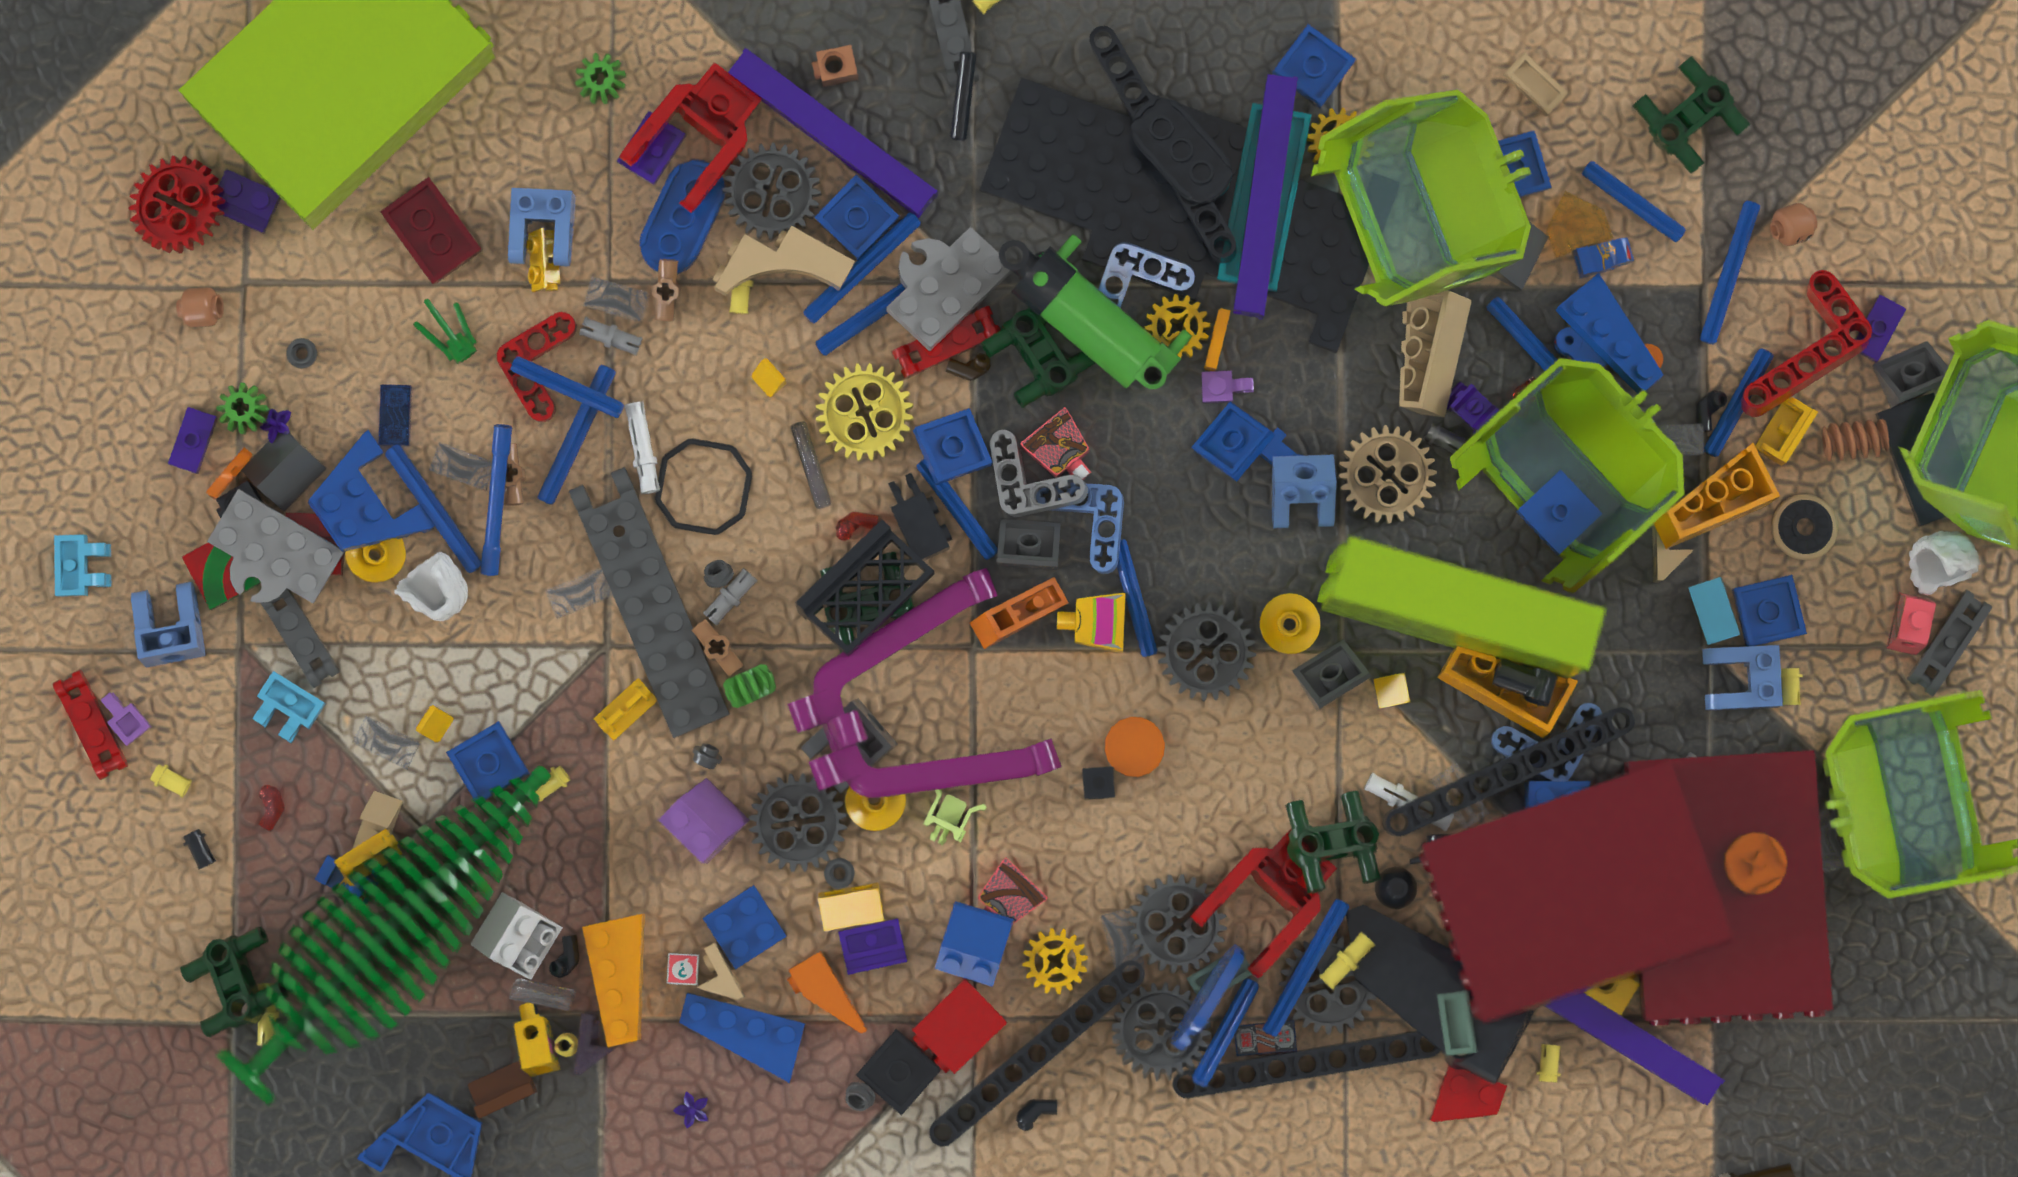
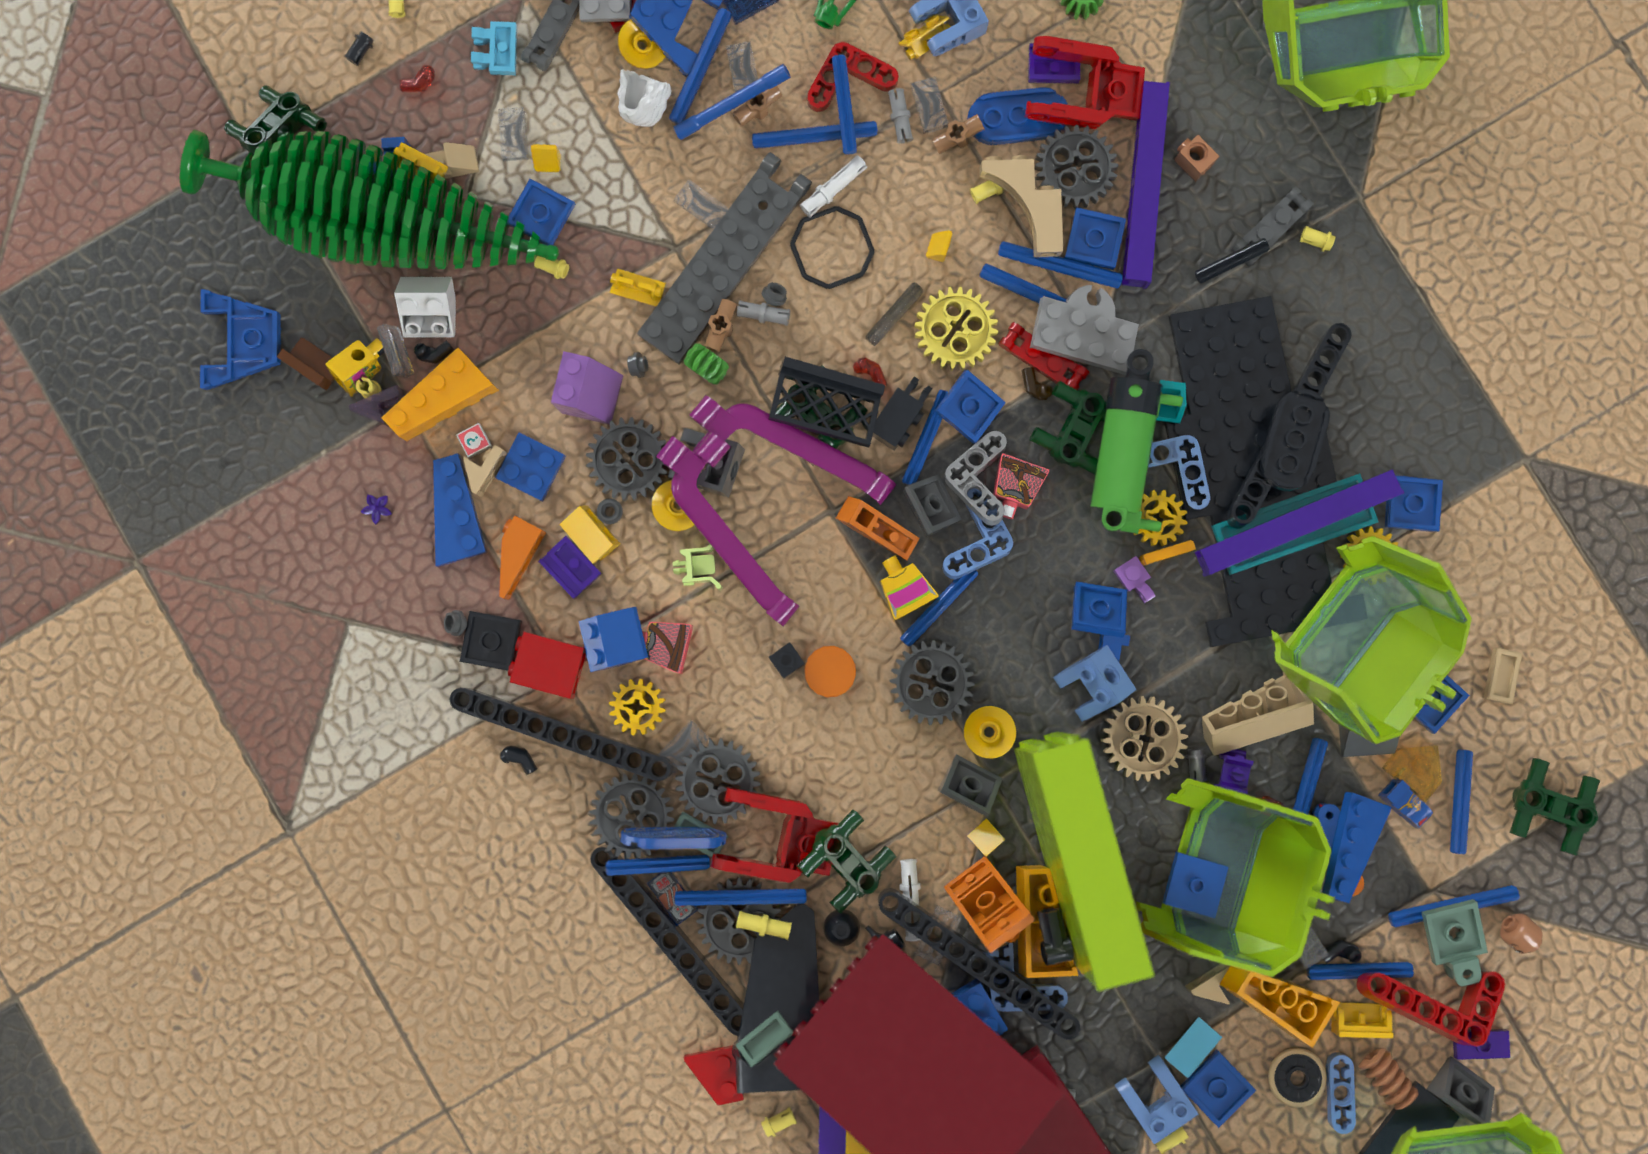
camera: 60 degrees right, 0 degrees up
(1060, 234) = (1172, 413): none -> teal panel
(1457, 726) = (989, 904): none -> orange brick
(1774, 297) = (1456, 953): none -> sand green plate
(1859, 512) = (1334, 1112): none -> medium blue beam

